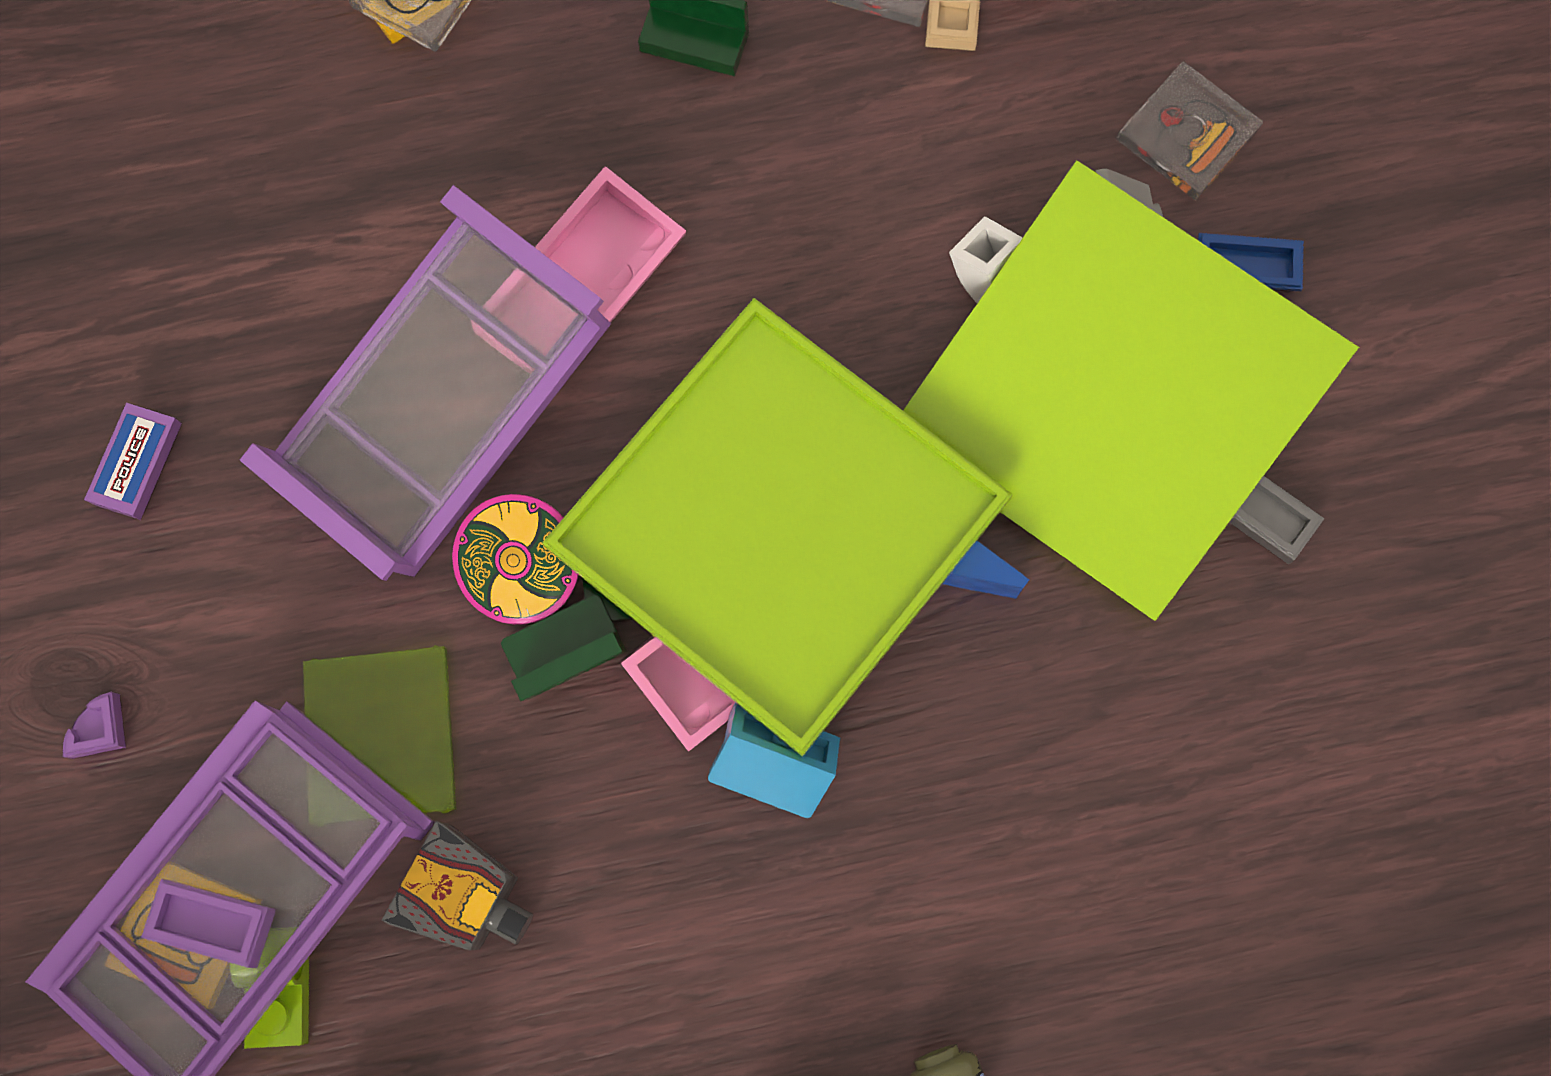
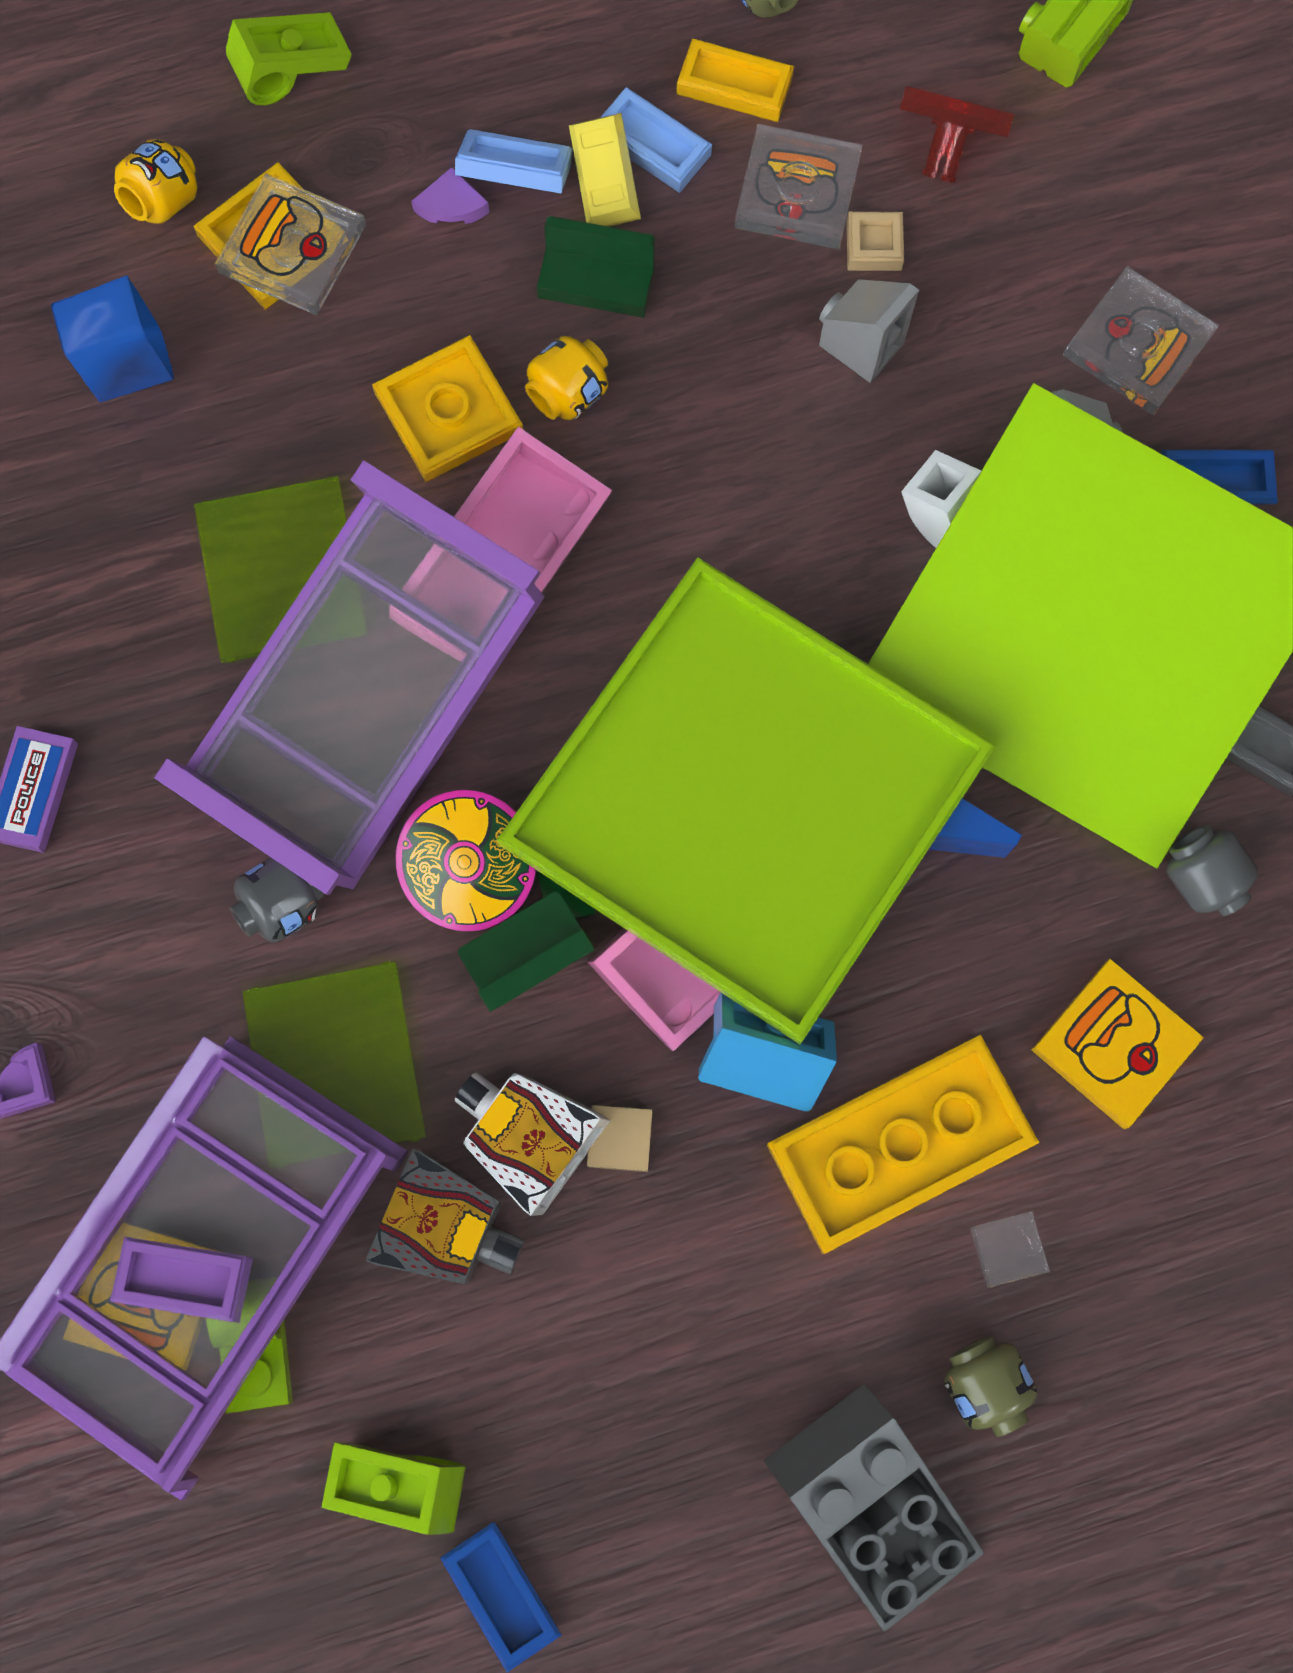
camera: 10 degrees left, 0 degrees up
(247, 60) = (112, 339): none -> blue piece
(337, 582) = (274, 901): none -> dark grey head
(362, 264) = (261, 556): none -> clear neon green piece
(545, 819) = (528, 1136): none -> torso
(546, 145) = (447, 408): none -> yellow tile
(631, 827) = (624, 1140): none -> tan tile
(656, 125) = (567, 378): none -> yellow head
(892, 856) = (902, 1144): none -> yellow tile
(936, 97) = (868, 324): none -> light grey slope
(982, 964) = (1009, 1249): none -> clear tile
(1102, 781) = (1117, 1044): none -> yellow tile
(1206, 627) = (1212, 870): none -> dark grey head

